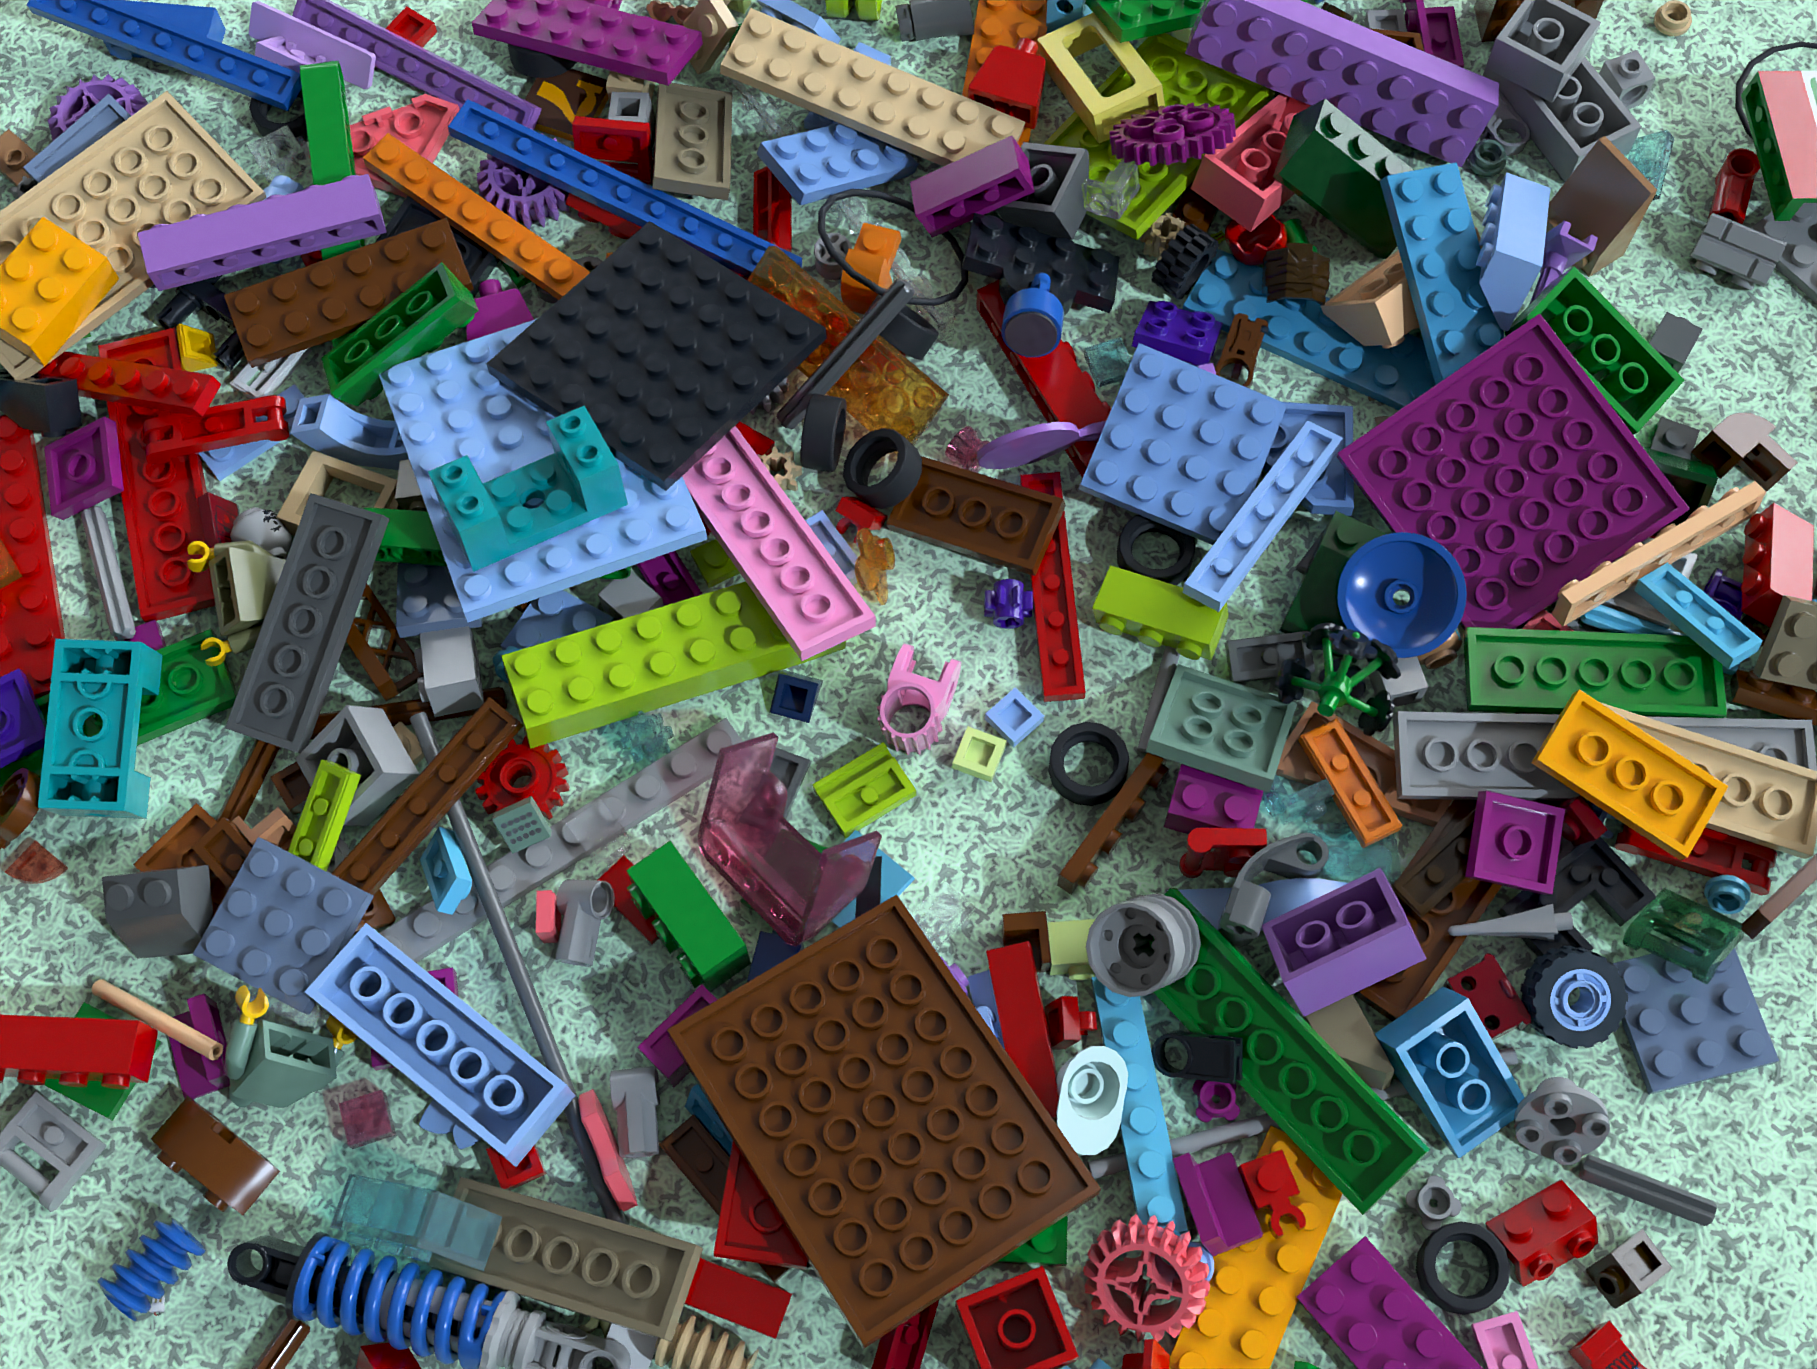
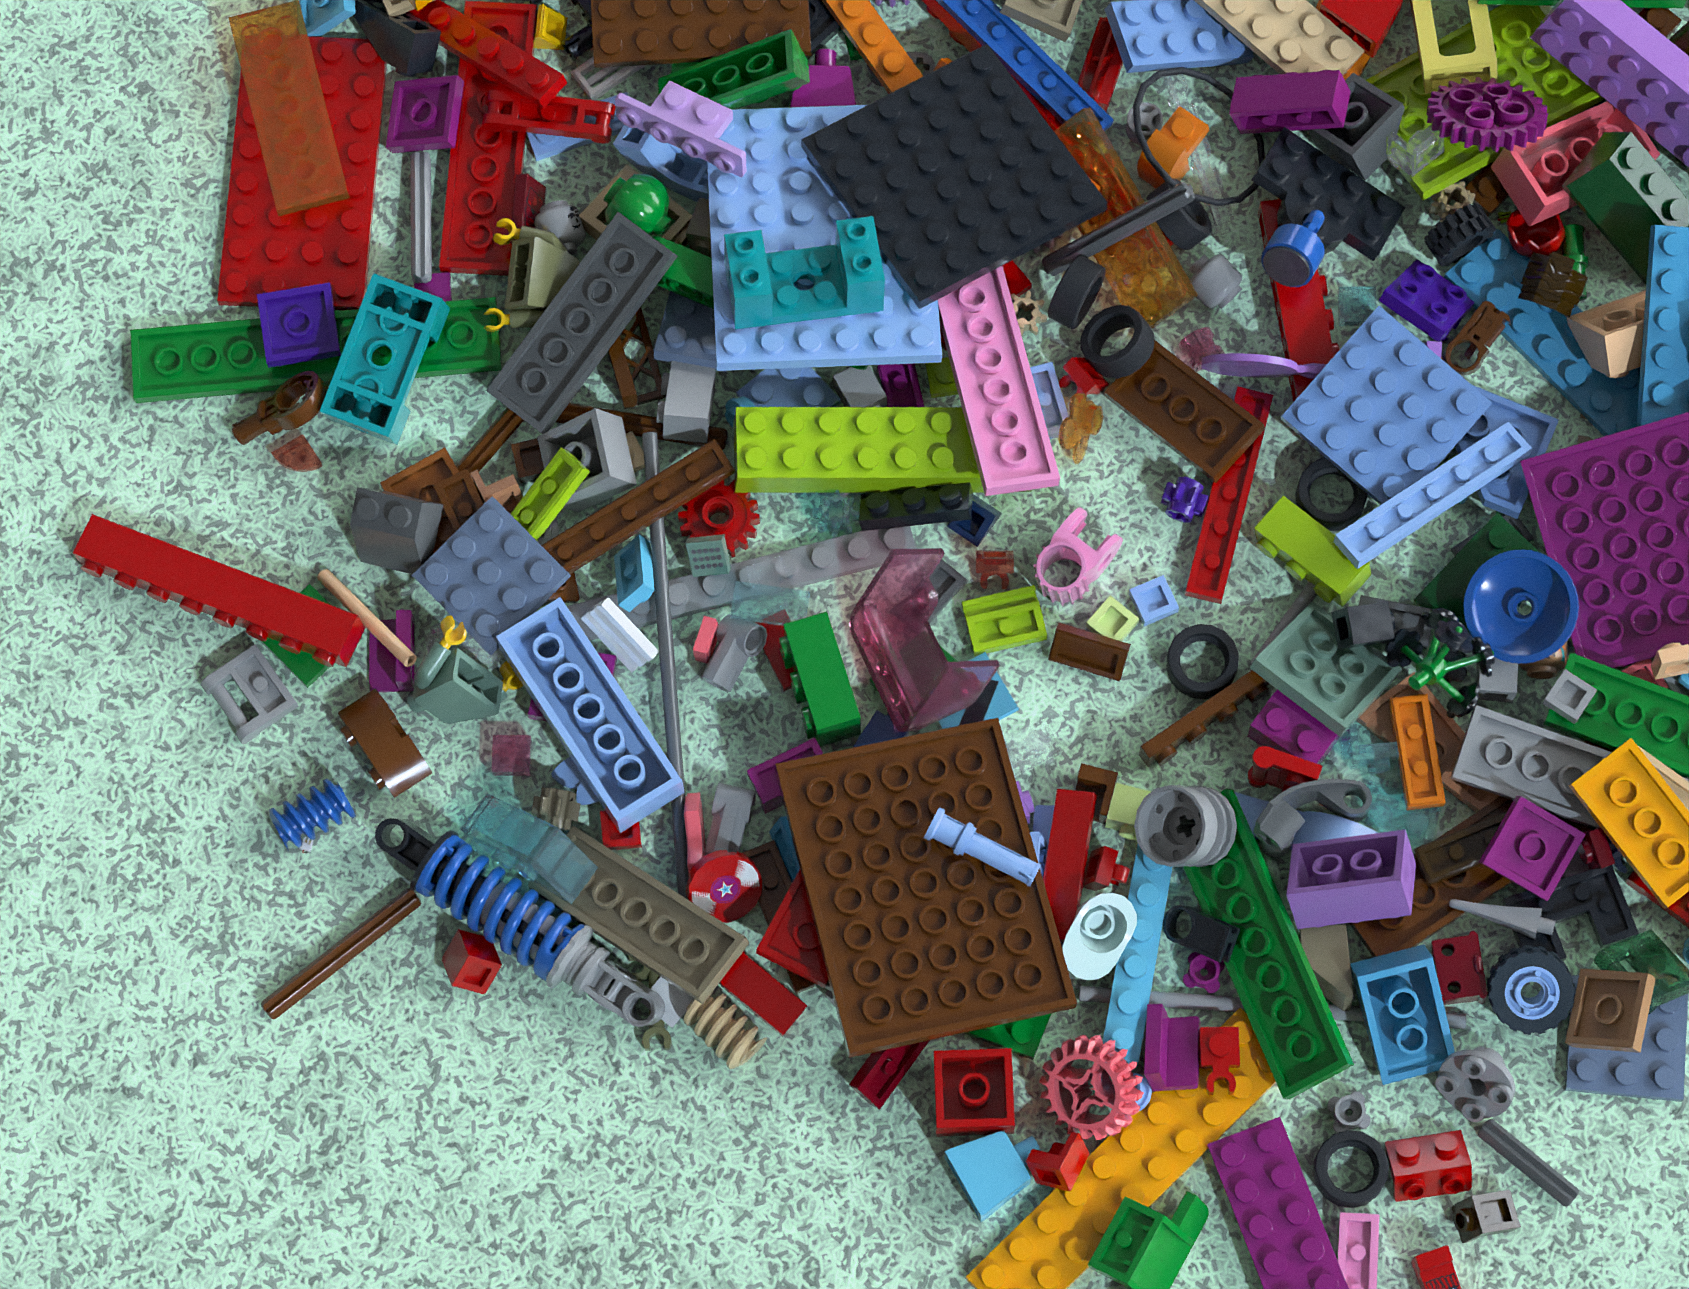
camera: 20 degrees right, 5 degrees up
(337, 477) = (641, 201): none -> green plant
(358, 383) = (685, 122): none -> lavender bracket
(434, 1163) = (556, 807): none -> dark tan gear
(449, 942) = (619, 634): none -> white tile
(603, 854) = (768, 603): none -> clear light blue tile
(653, 1187) = (724, 885): none -> red tile
(730, 701) = (916, 506): none -> black plate
(832, 733) = (994, 563): none -> clear red tile
(909, 1043) = (965, 840): none -> light blue pin
(961, 379) = (1215, 280): none -> light grey head
(966, 792) = (1089, 651): none -> reddish brown tile
(1244, 668) = (1363, 625): none -> black brick
(1489, 670) = (1569, 696): none -> light grey plate
(1673, 990) = (1610, 1010): none -> medium nougat plate

